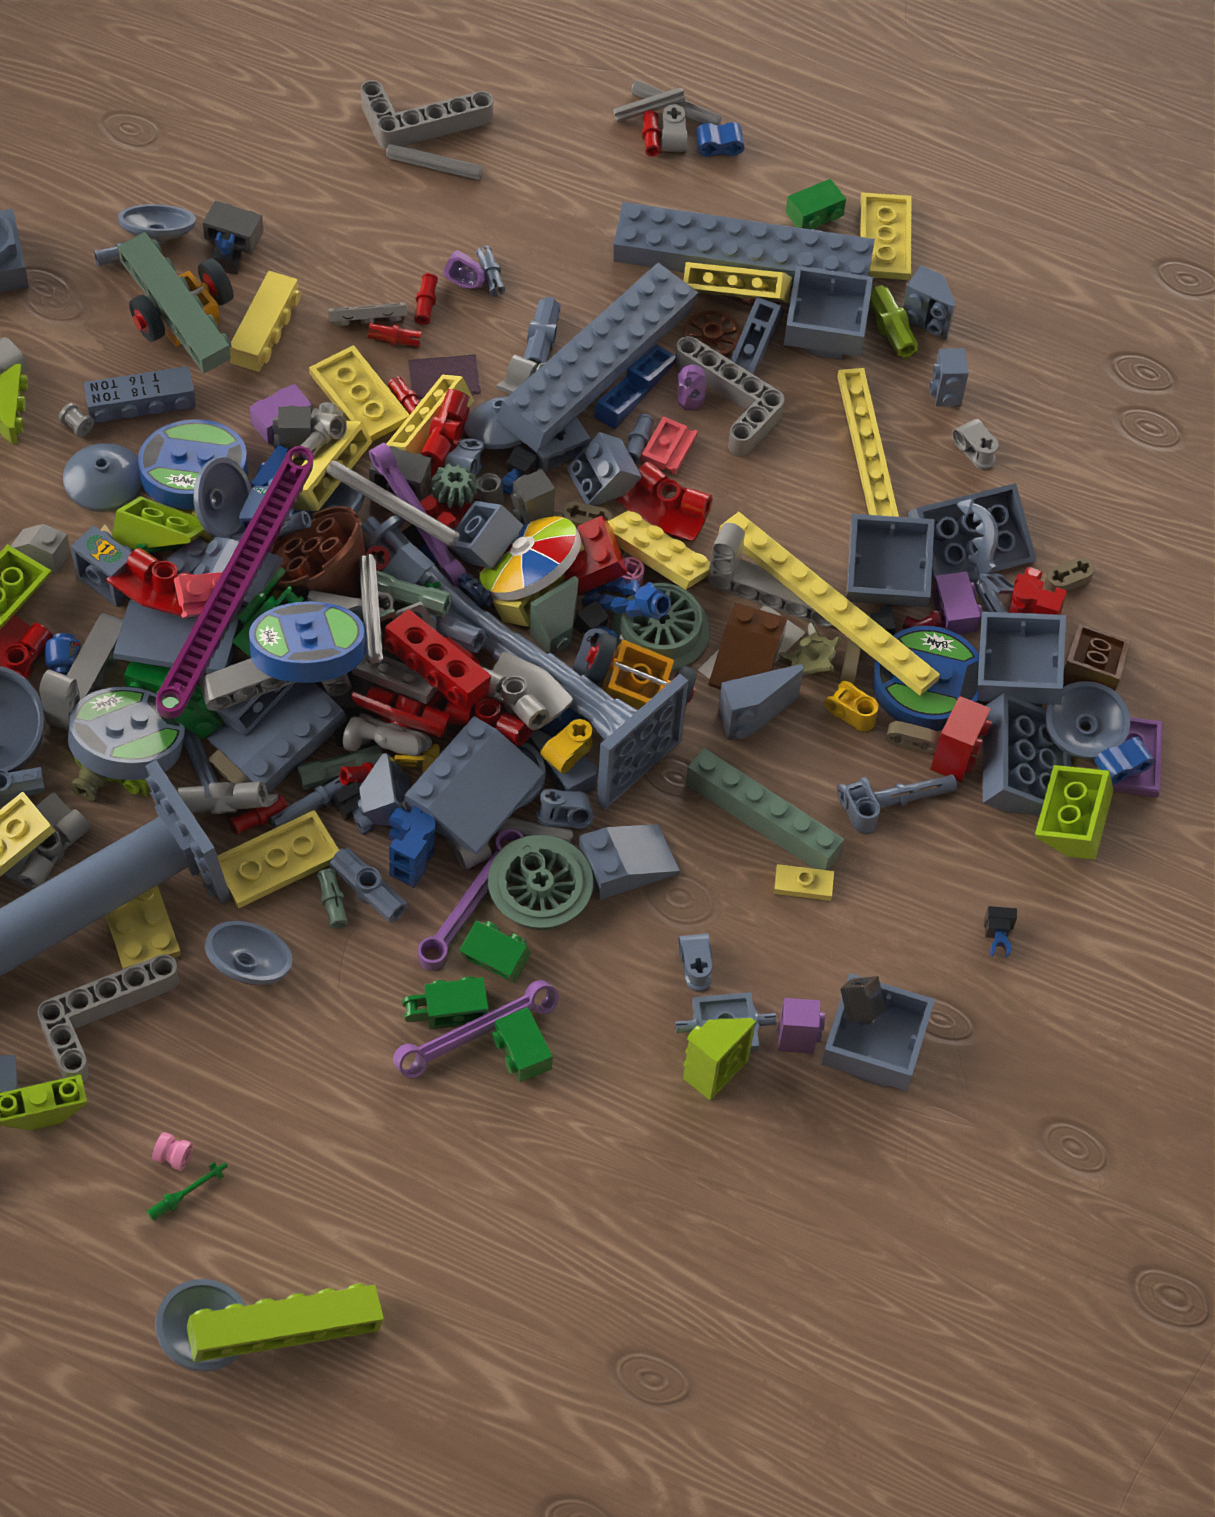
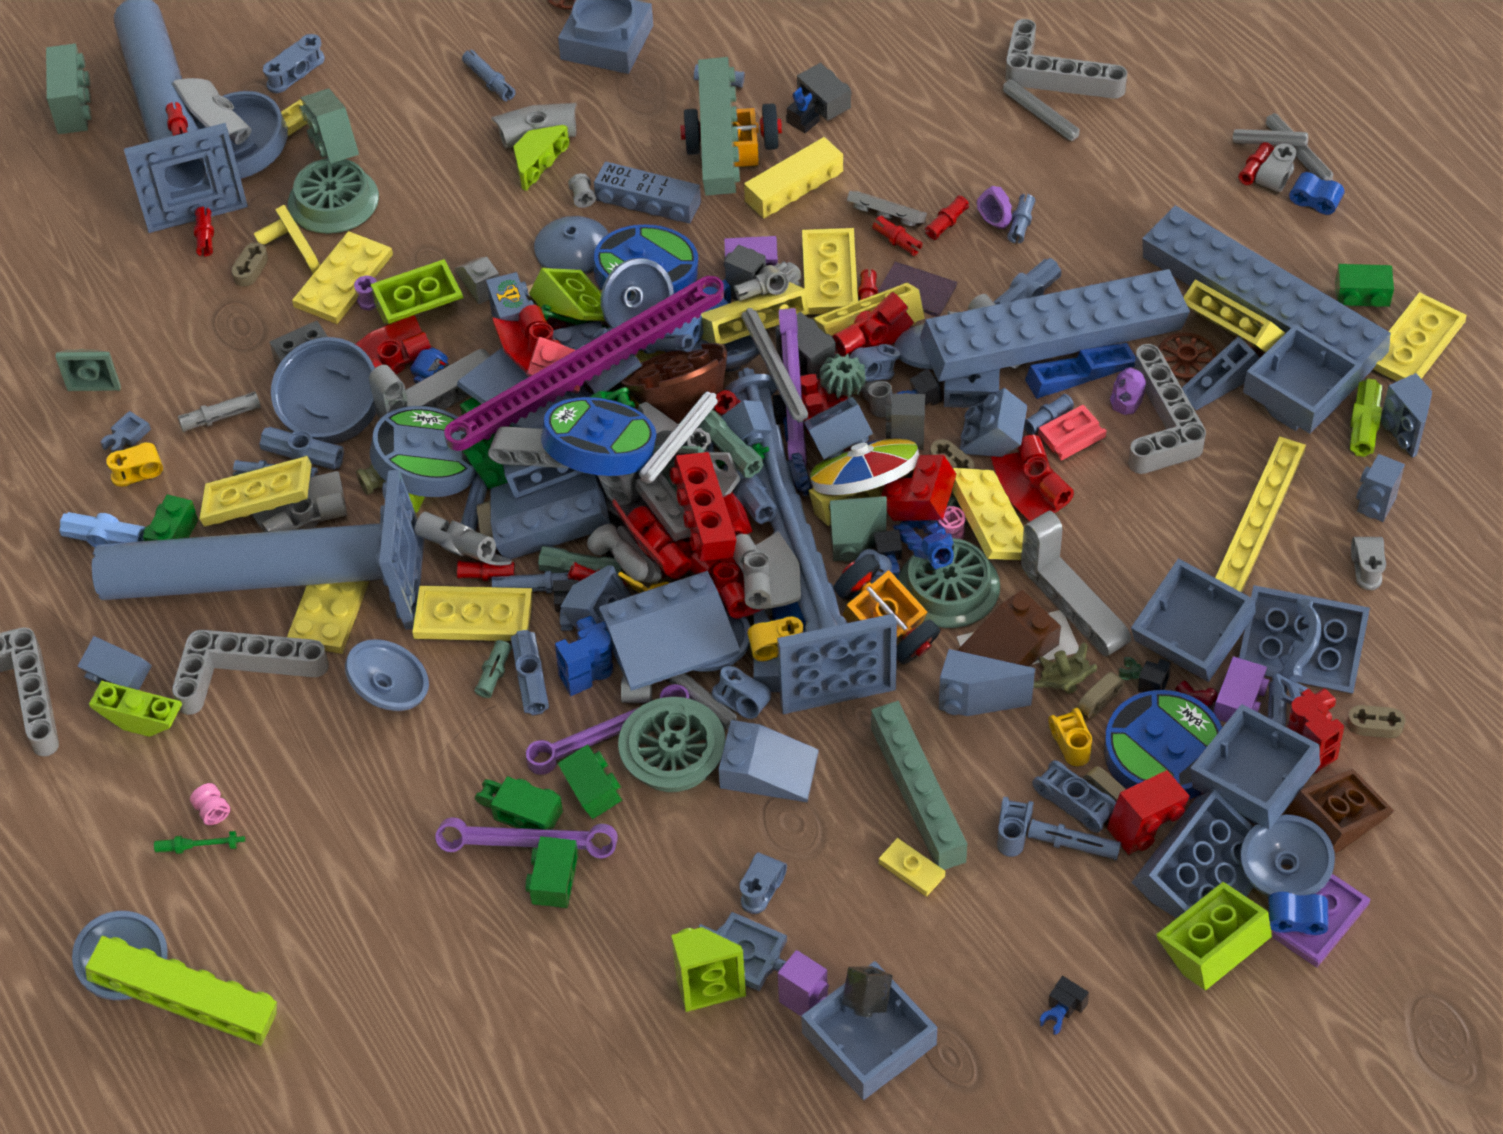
camera: 40 degrees right, 5 degrees down
(158, 221) = (762, 62): sand blue dish -> none
(259, 599) = (603, 387): green piece -> none
(835, 607) = (1112, 635): light yellow plate -> none
(905, 753) = (1059, 786): none -> sand blue piece

